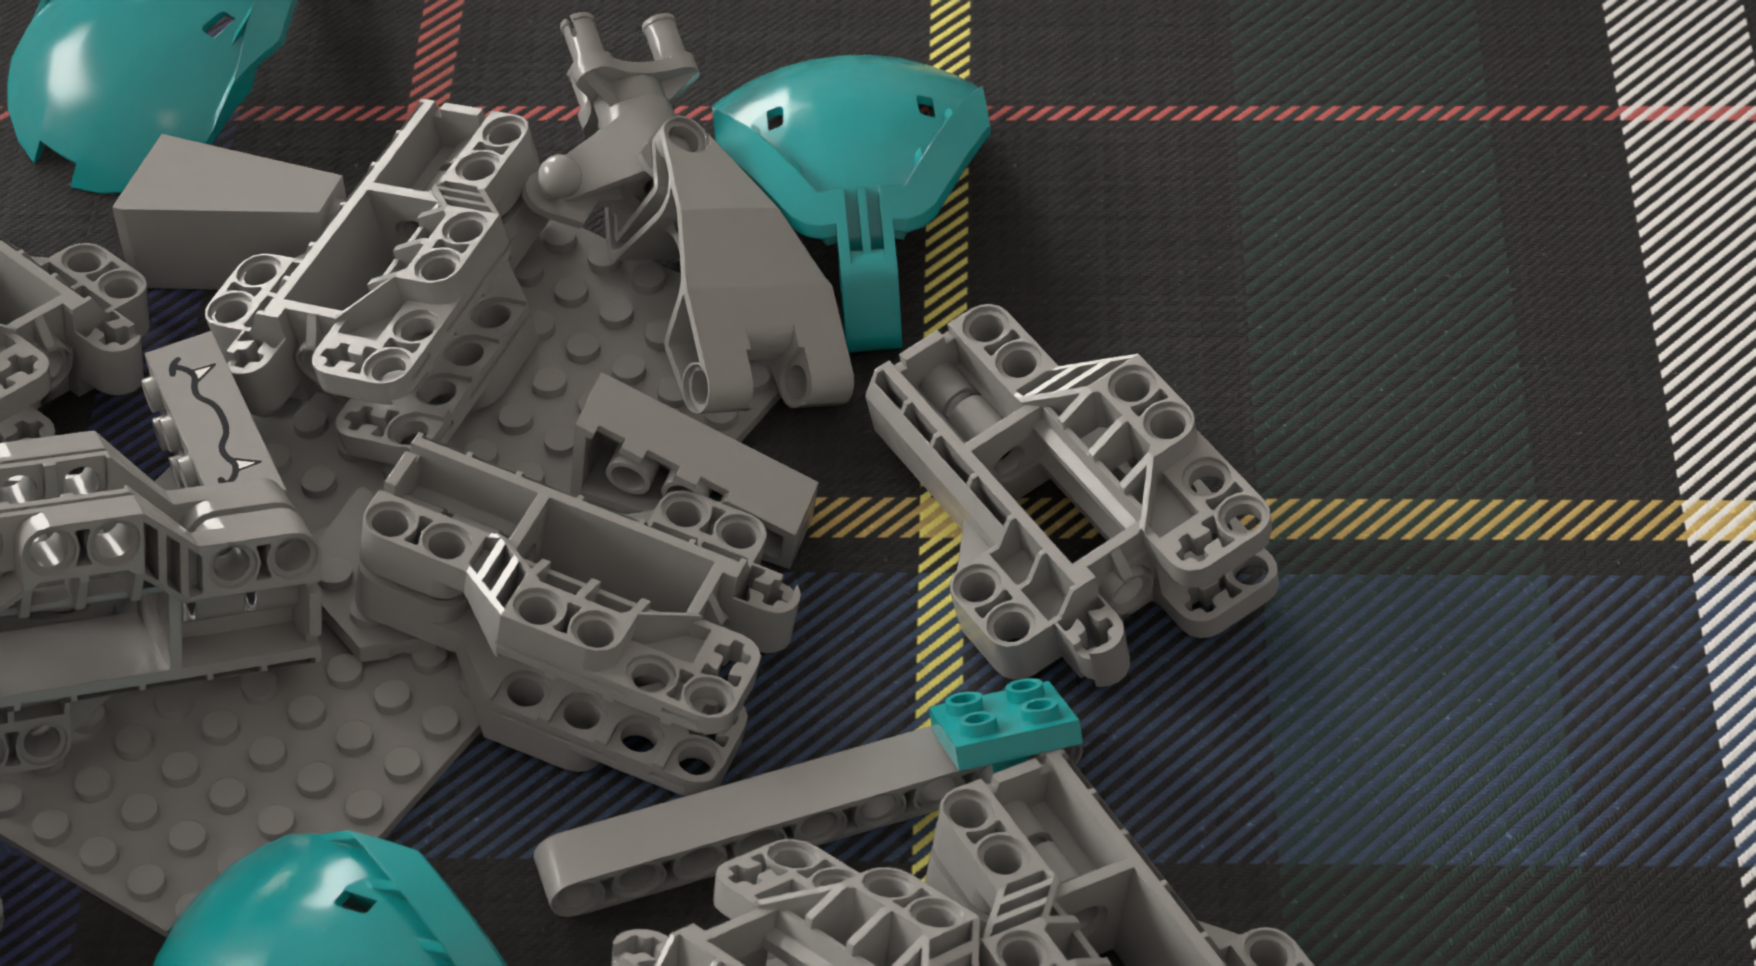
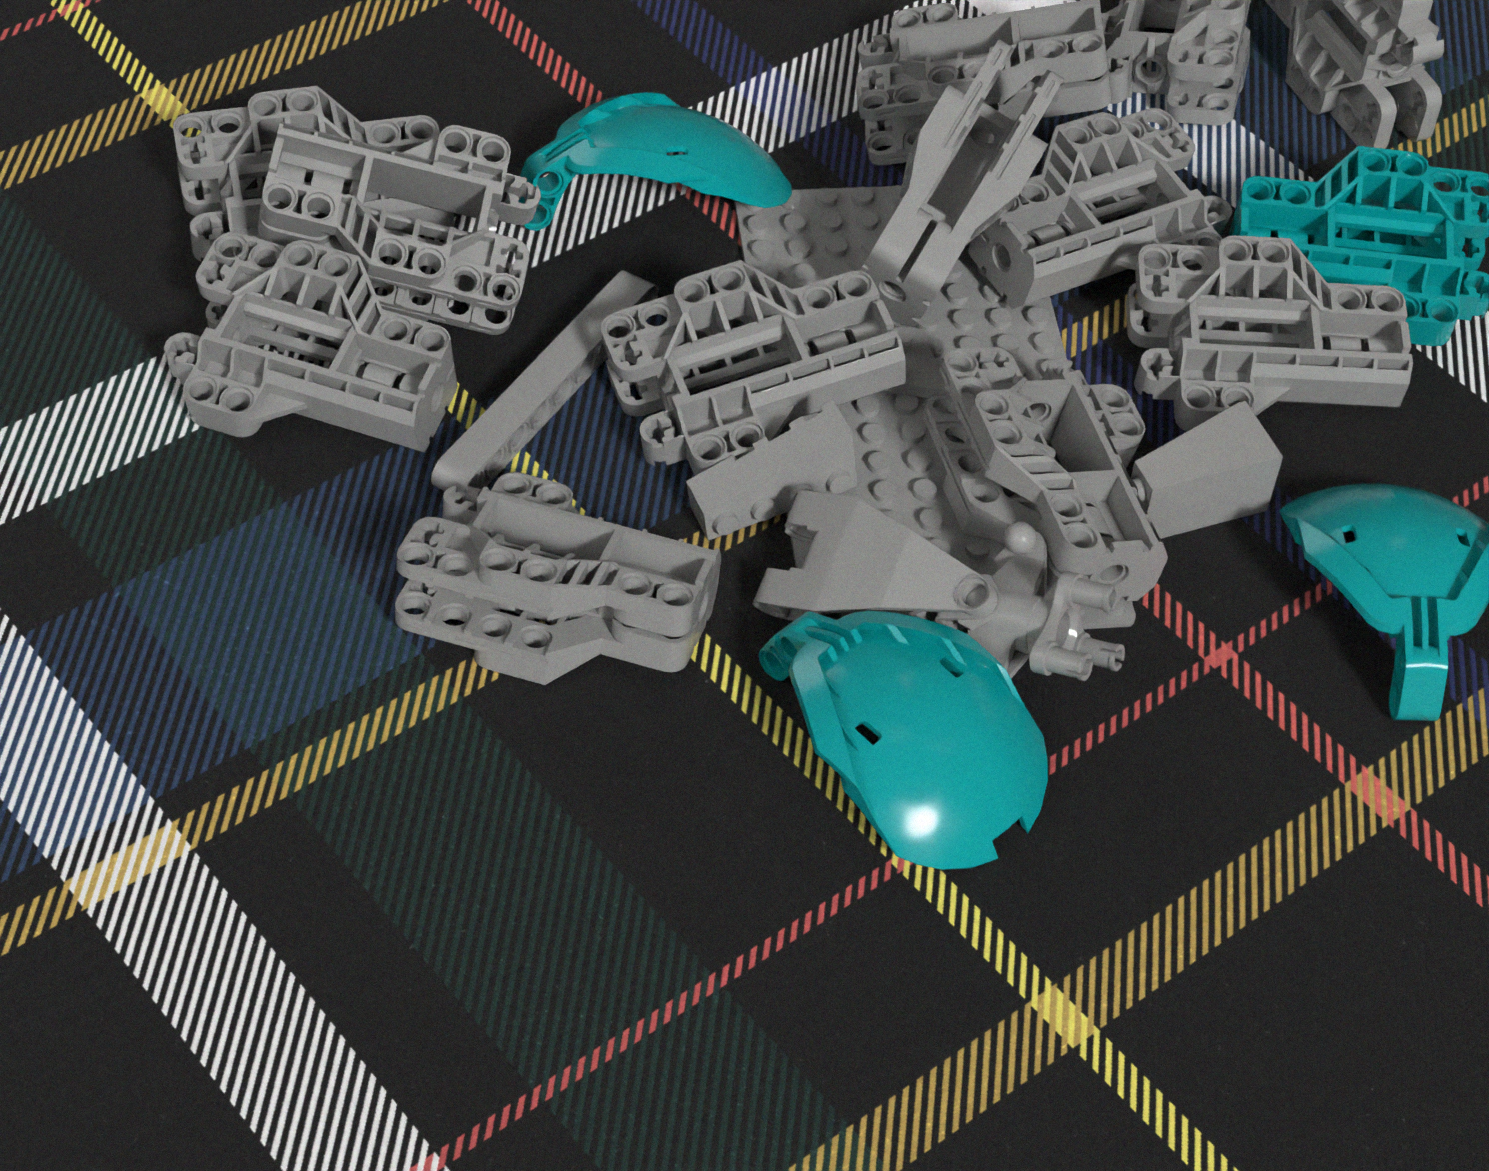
camera: 135 degrees right, 0 degrees up
(203, 416) = (1028, 327): light grey brick -> none
(1004, 725) = (463, 417): teal plate -> none

